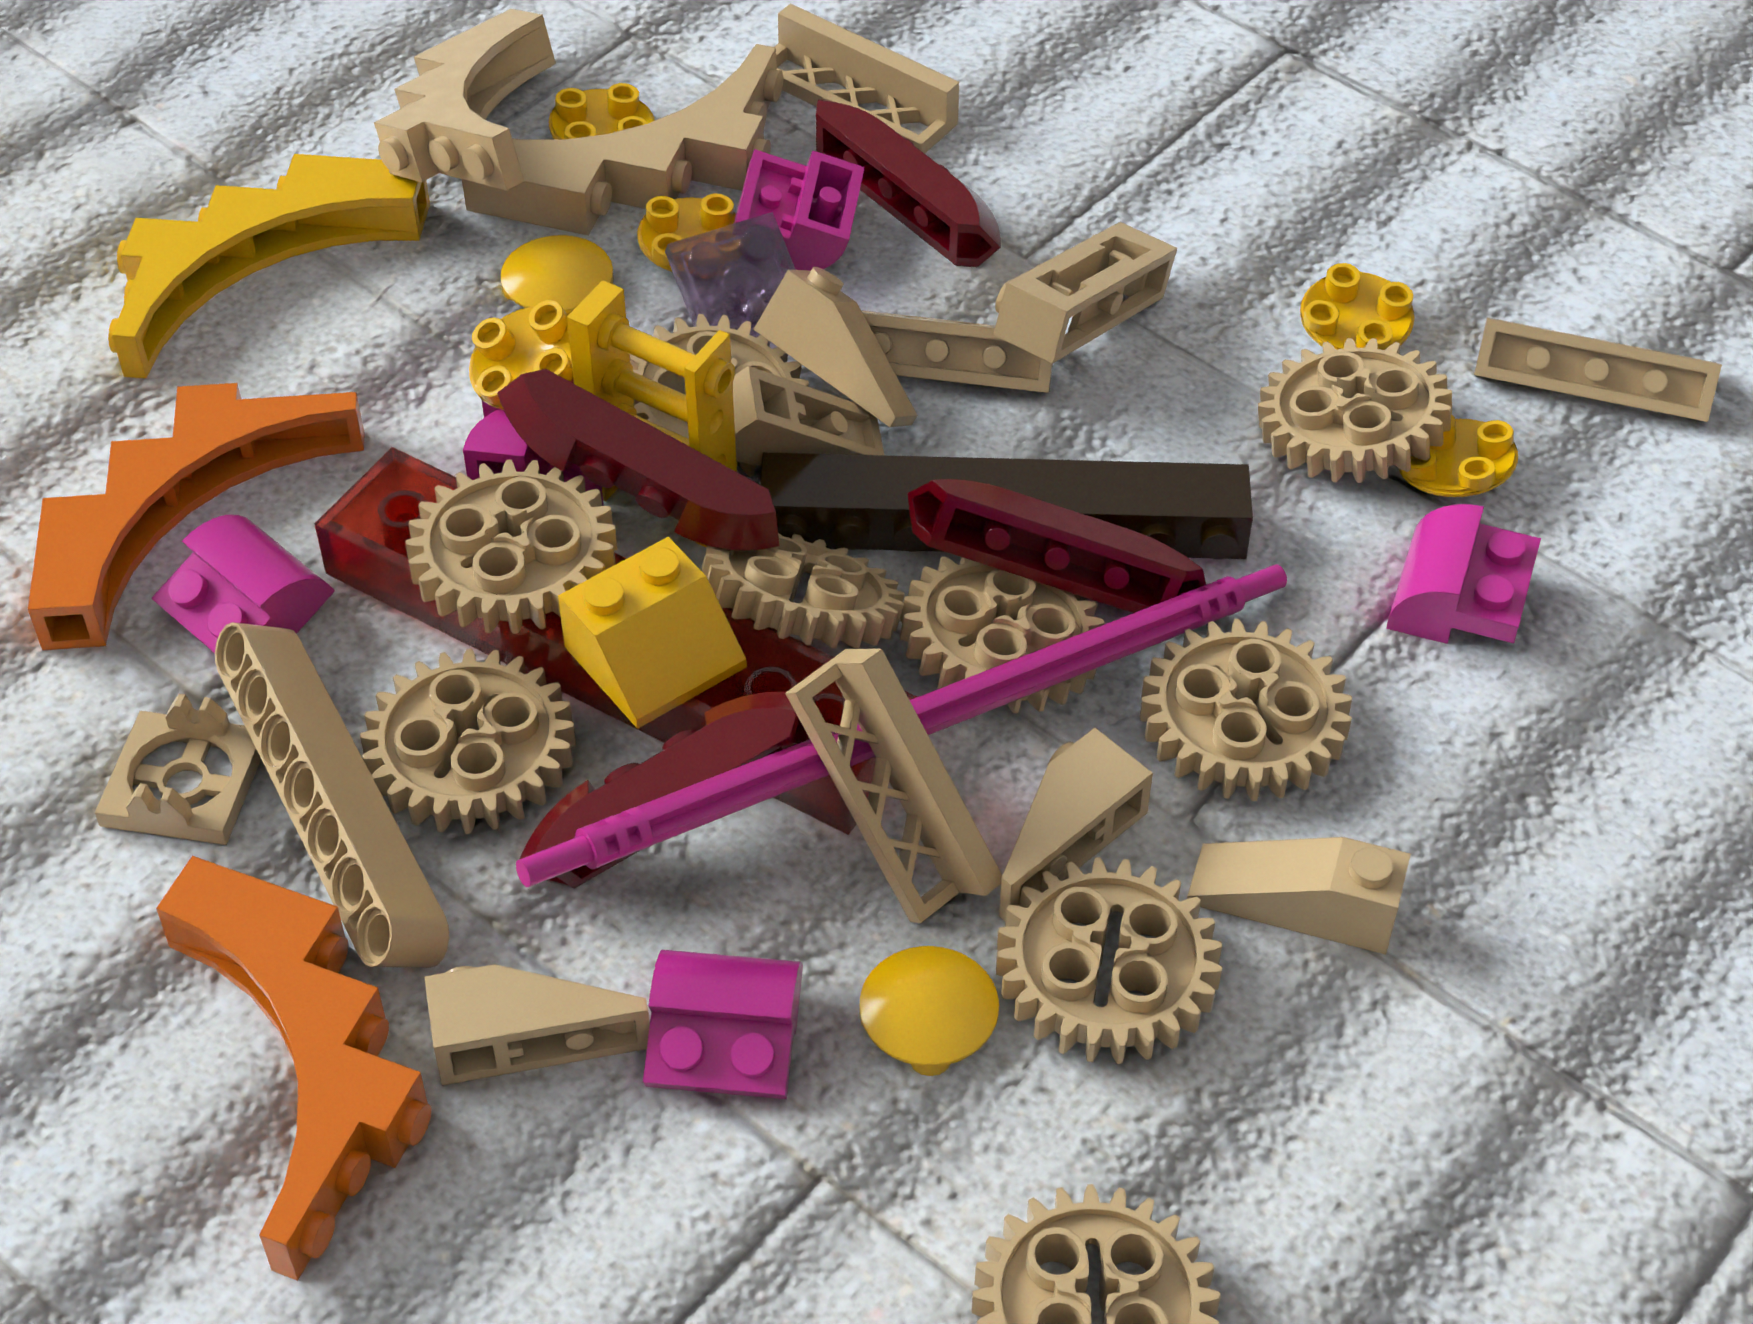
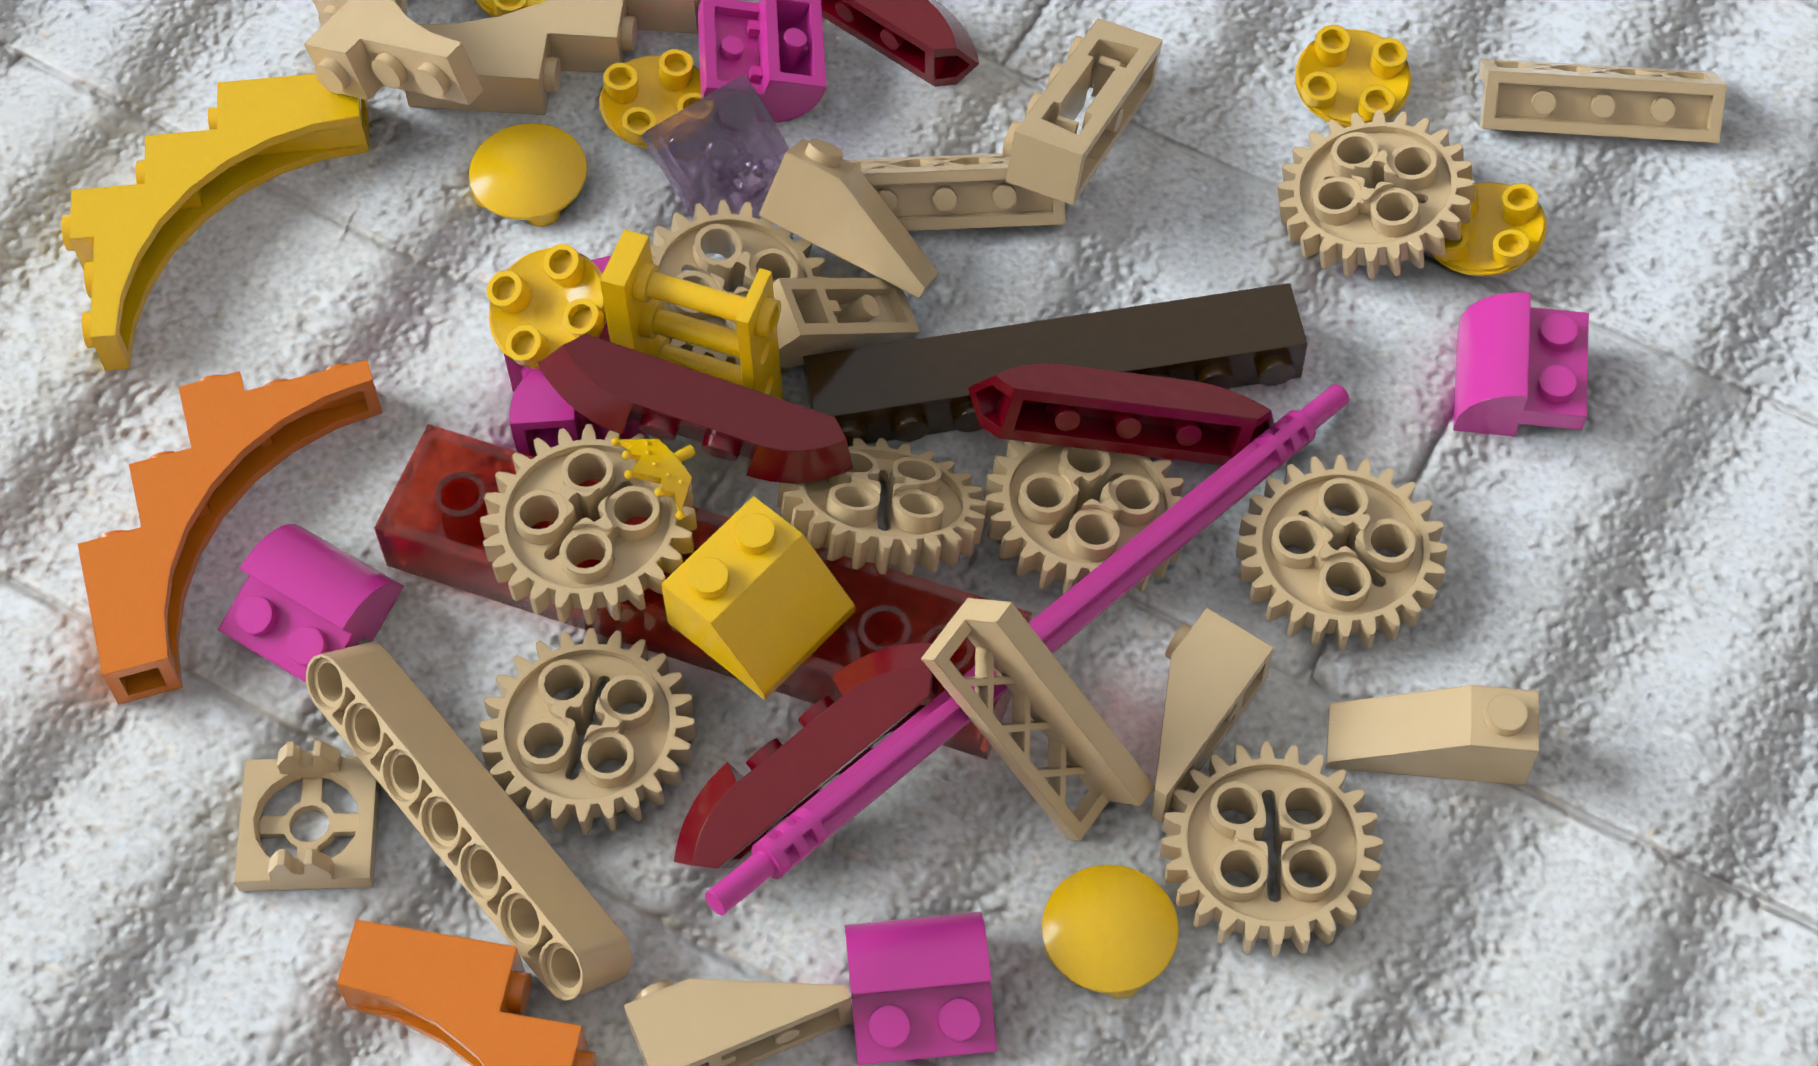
camera: 10 degrees left, 10 degrees up
(590, 500) = (661, 466): none -> yellow piece

